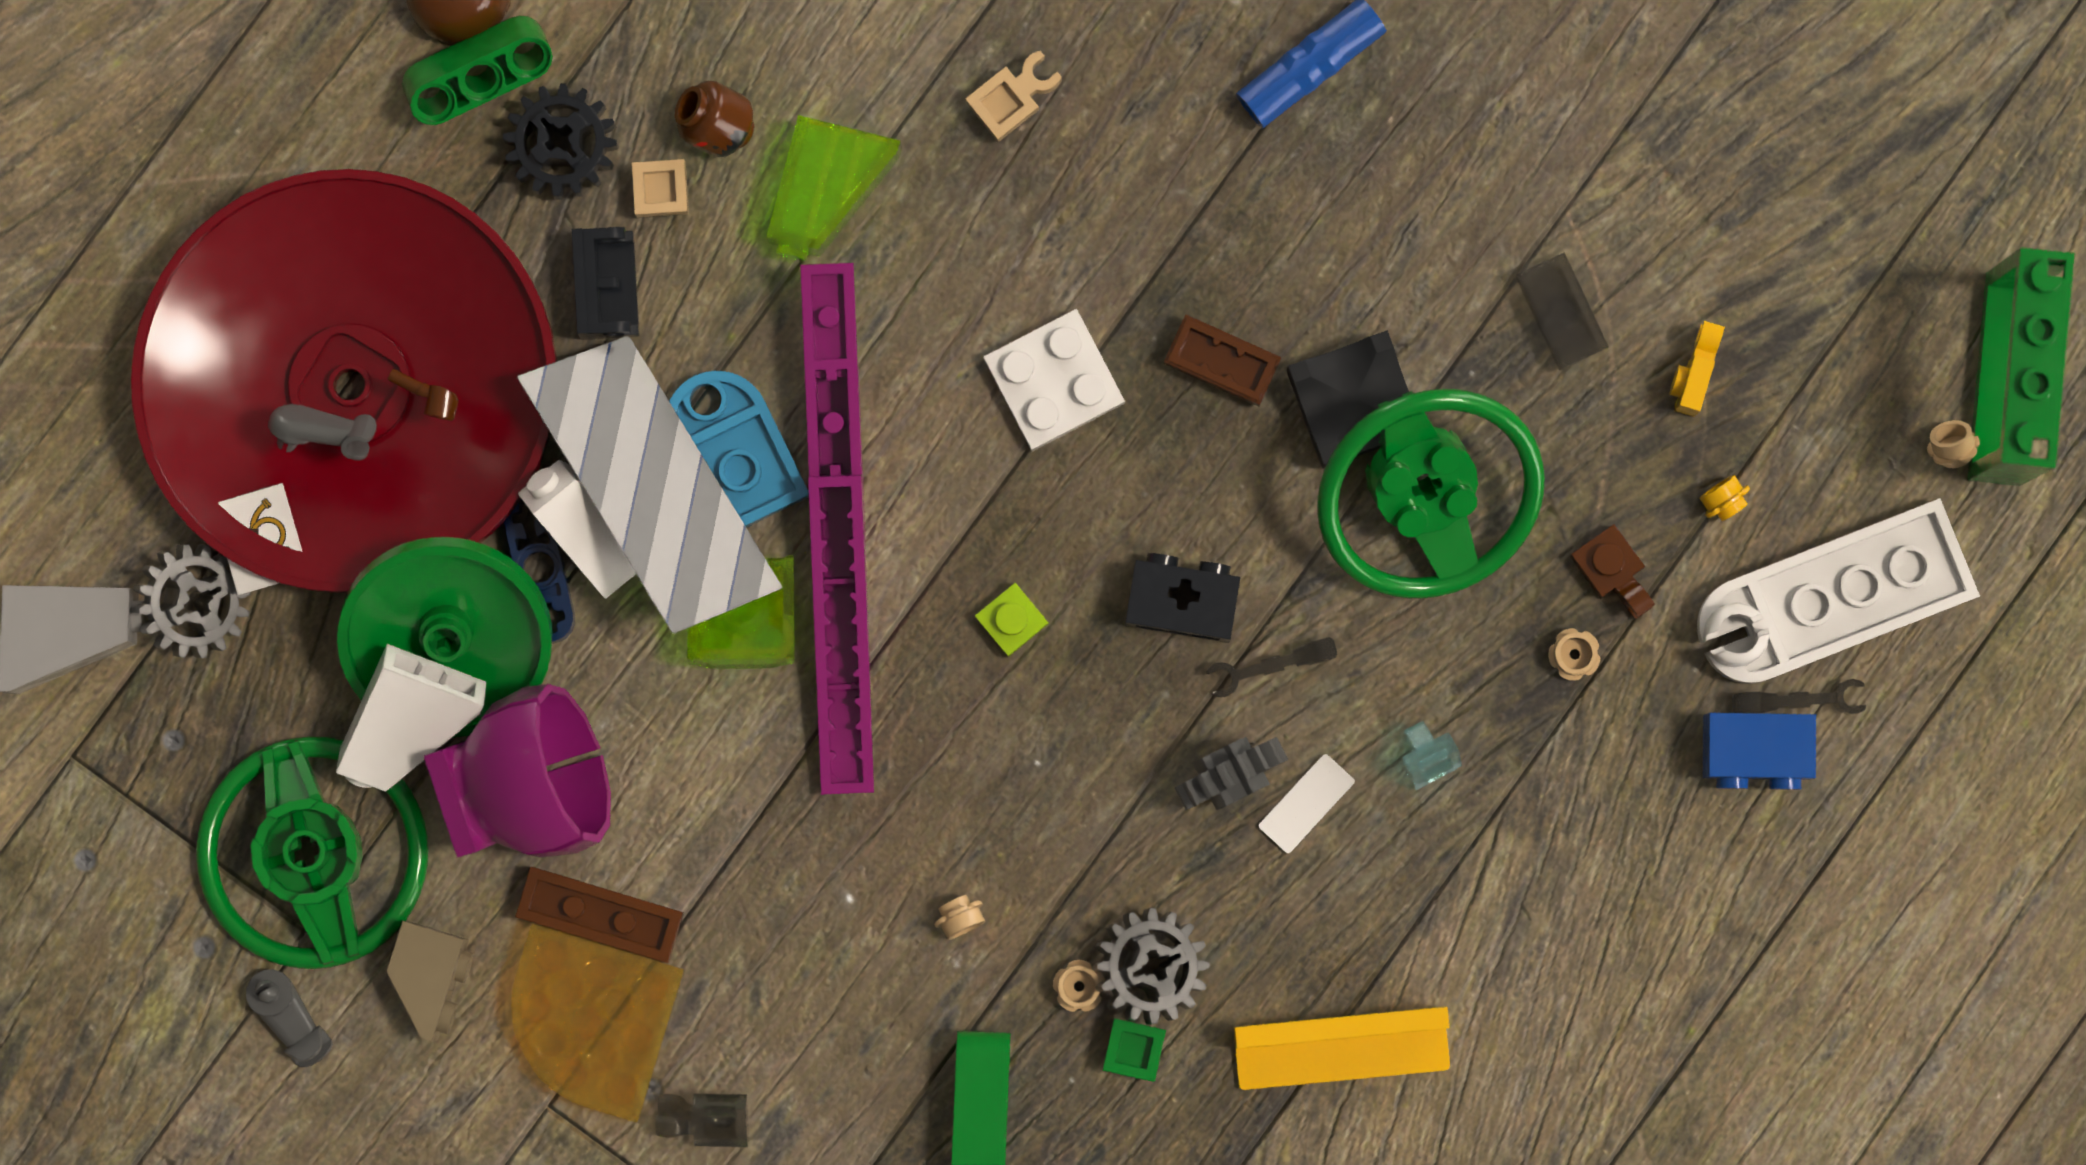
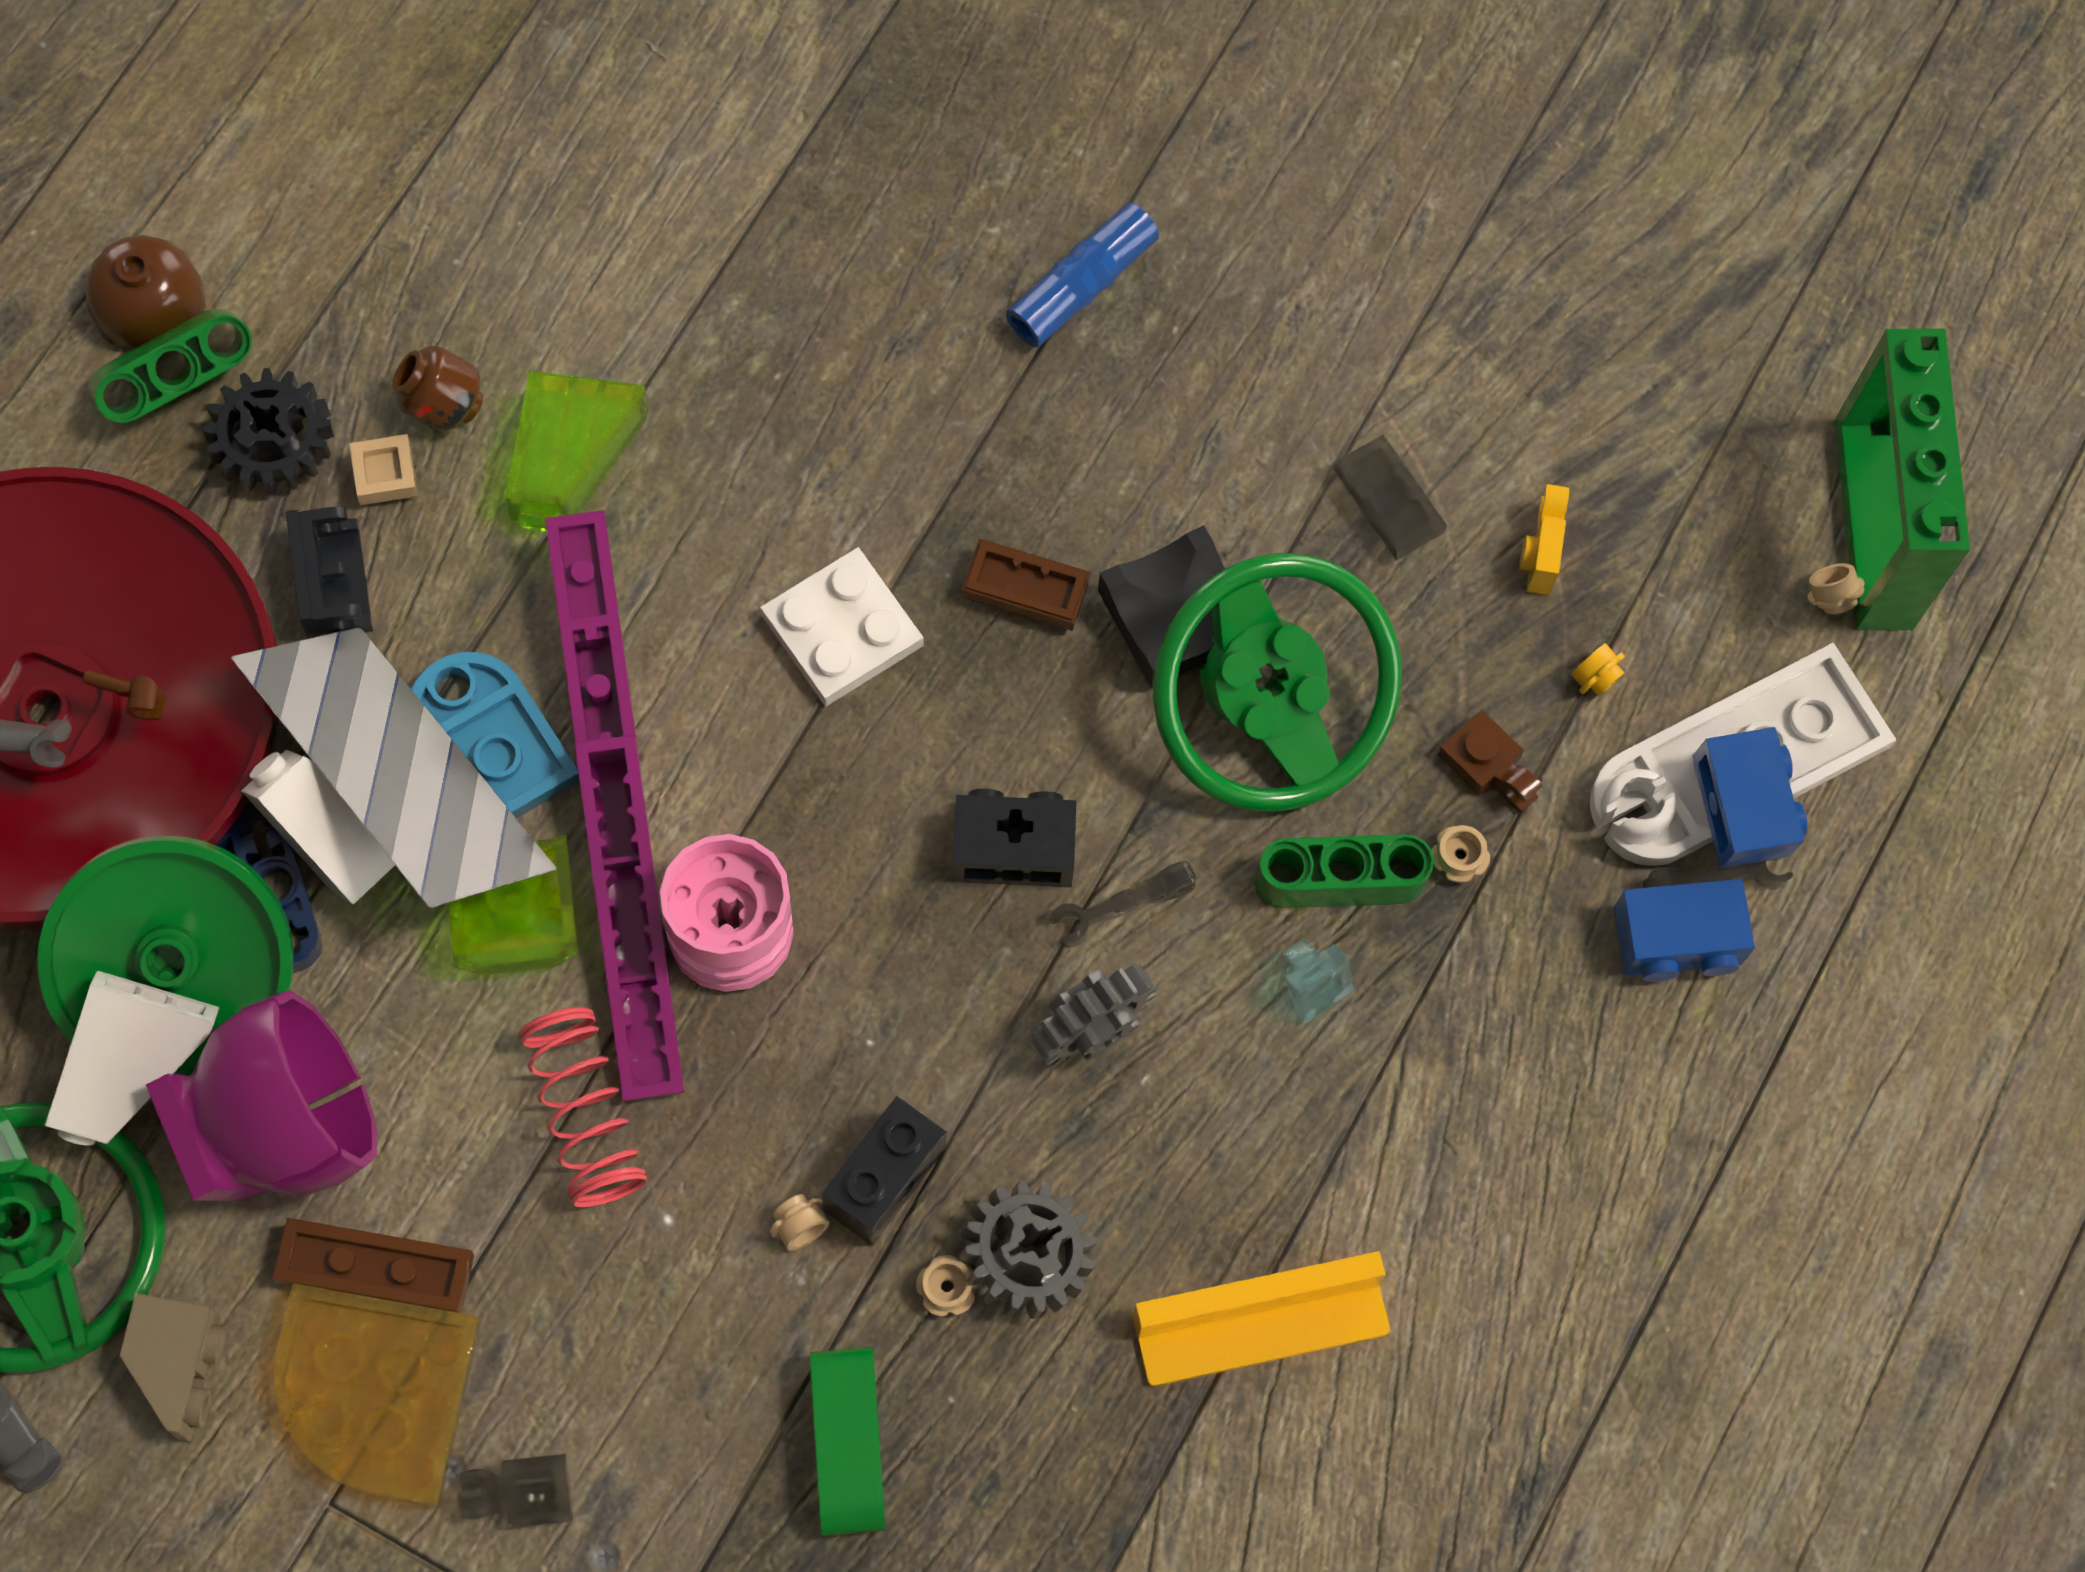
camera: 15 degrees left, 15 degrees down
(777, 727) = (570, 1036): none -> coral piece
(929, 614) = (730, 882): none -> bright pink wheel
(1007, 101) = (761, 344): tan plate -> none
(1011, 620) = (824, 886): lime plate -> none
(1036, 884) = (884, 1170): none -> black brick
(1134, 1050) = (1020, 1350): green plate -> none
(1306, 803) = (1183, 1052): white sticker -> none
(1494, 658) = (1367, 855): none -> green beam
(1835, 642) = (1749, 797): none -> blue brick

